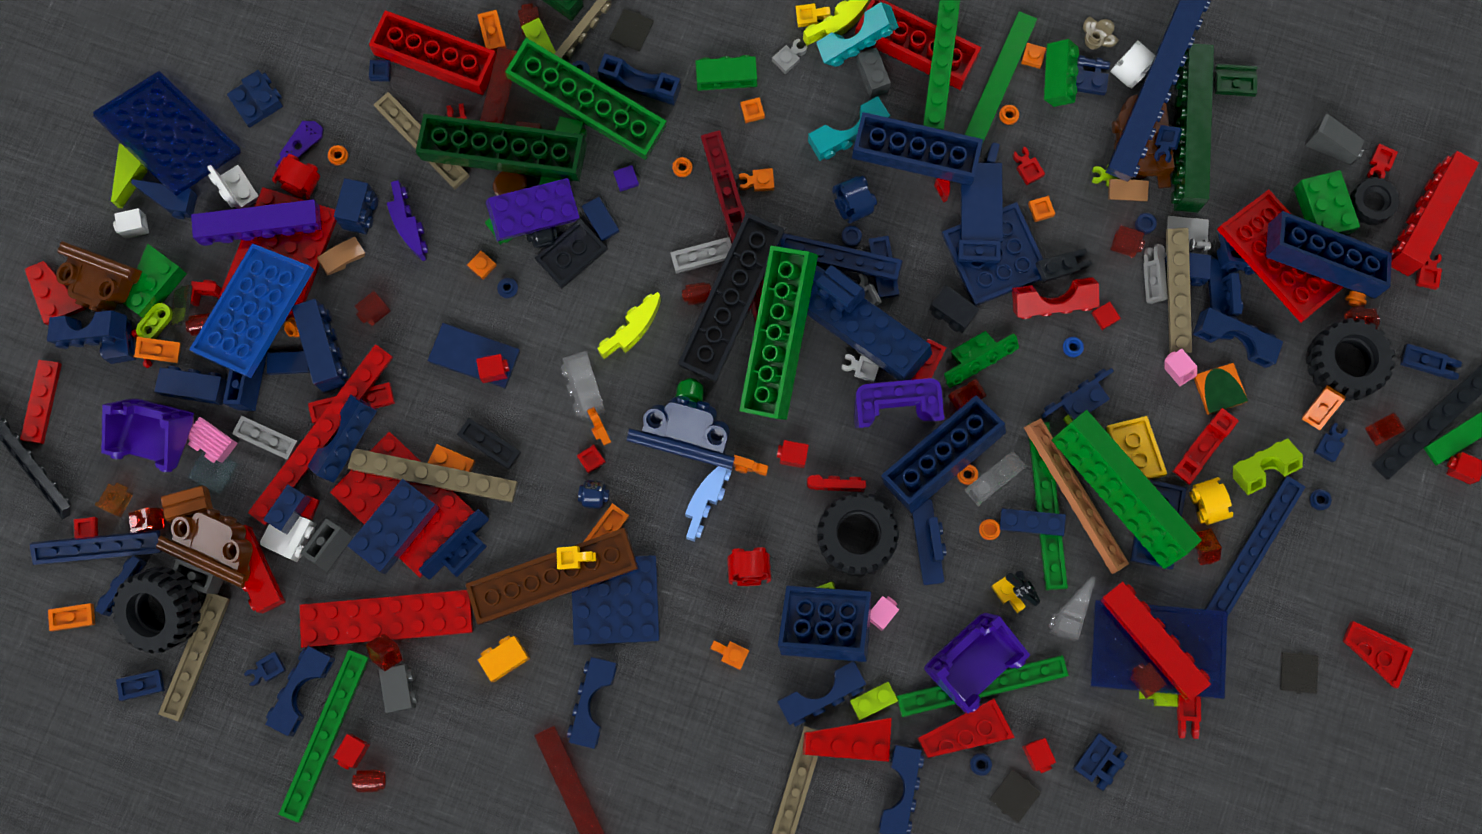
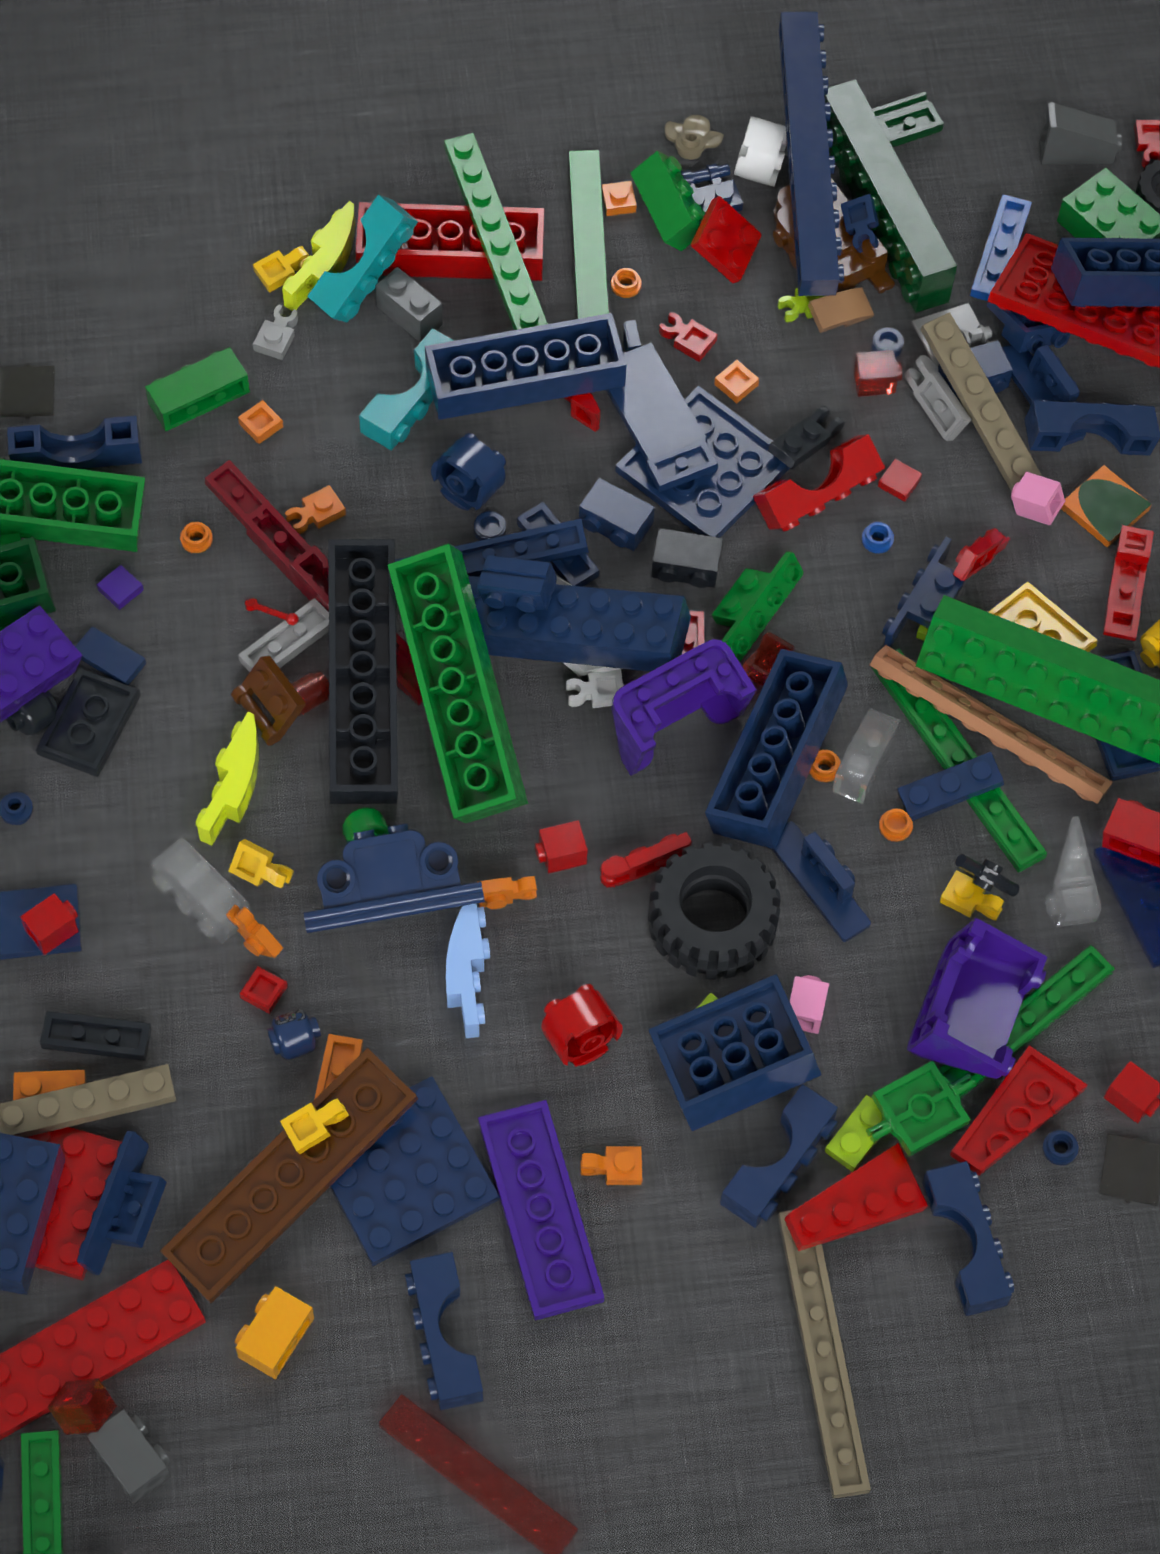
camera: 30 degrees left, 15 degrees down
(620, 385) = (255, 865): none -> yellow plate
(677, 287) = (276, 695): none -> reddish brown plate
(677, 659) = (541, 1210): none -> dark purple plate
(694, 223) = (252, 604): none -> red hinge
(912, 706) = (921, 1108): none -> green plate
(926, 263) = (616, 514): none -> brick
(1082, 114) = (726, 239): none -> red plate
(1128, 386) = (979, 554): none -> red hinge
(1249, 190) = (1001, 243): none -> plate

